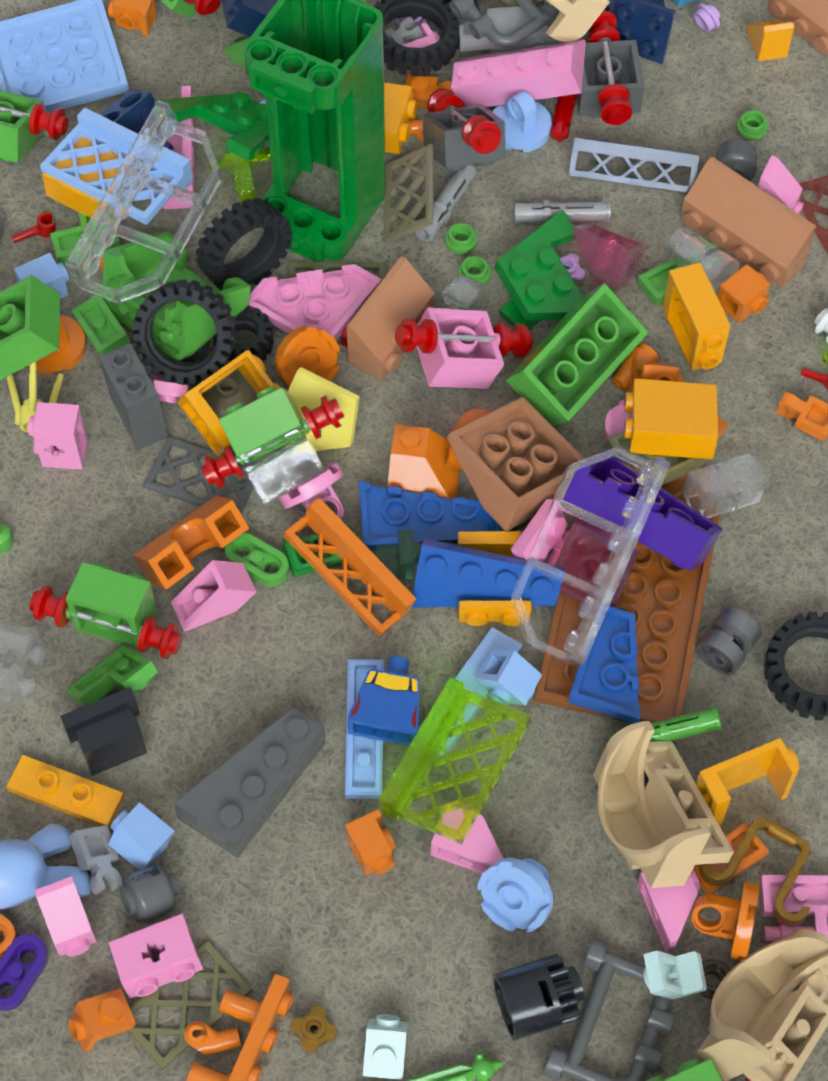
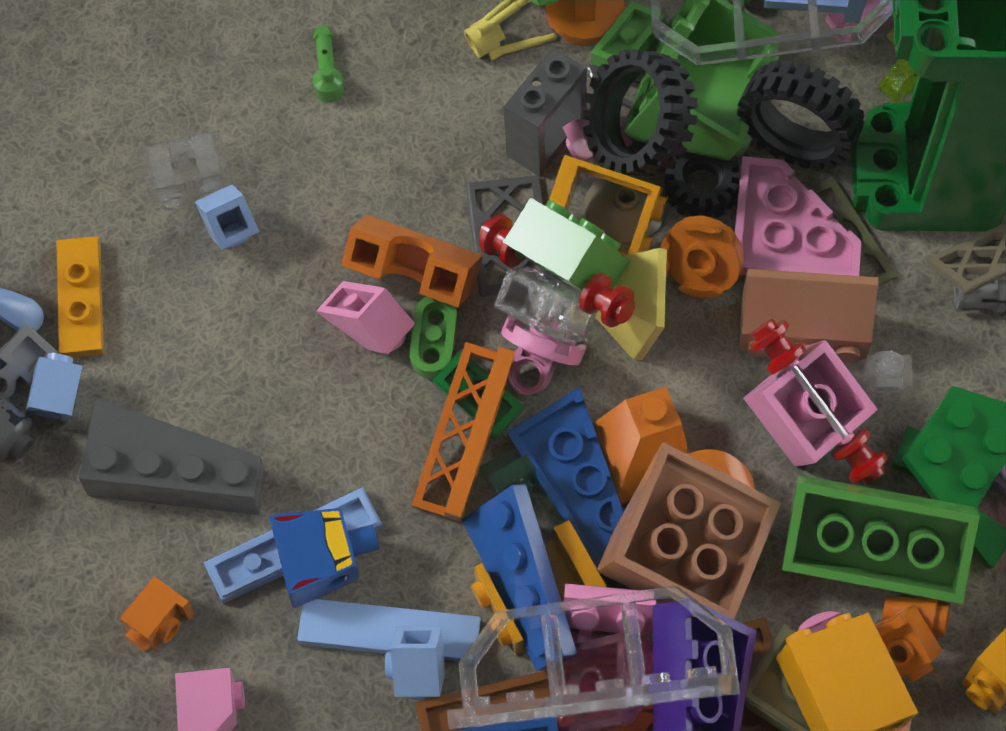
camera: 65 degrees right, 5 degrees up
(59, 435) = (463, 70): bright pink brick -> none
(72, 650) = (227, 217): none -> light blue brick
(106, 731) = (151, 295): black plate -> none
(110, 608) = (292, 226): bright green brick -> none
(120, 670) = (218, 273): bright green plate -> none
(424, 753) = (280, 615): clear neon green fence -> none
(461, 231) = (984, 328): bright green plate -> none
(475, 264) = (945, 364): bright green plate -> none

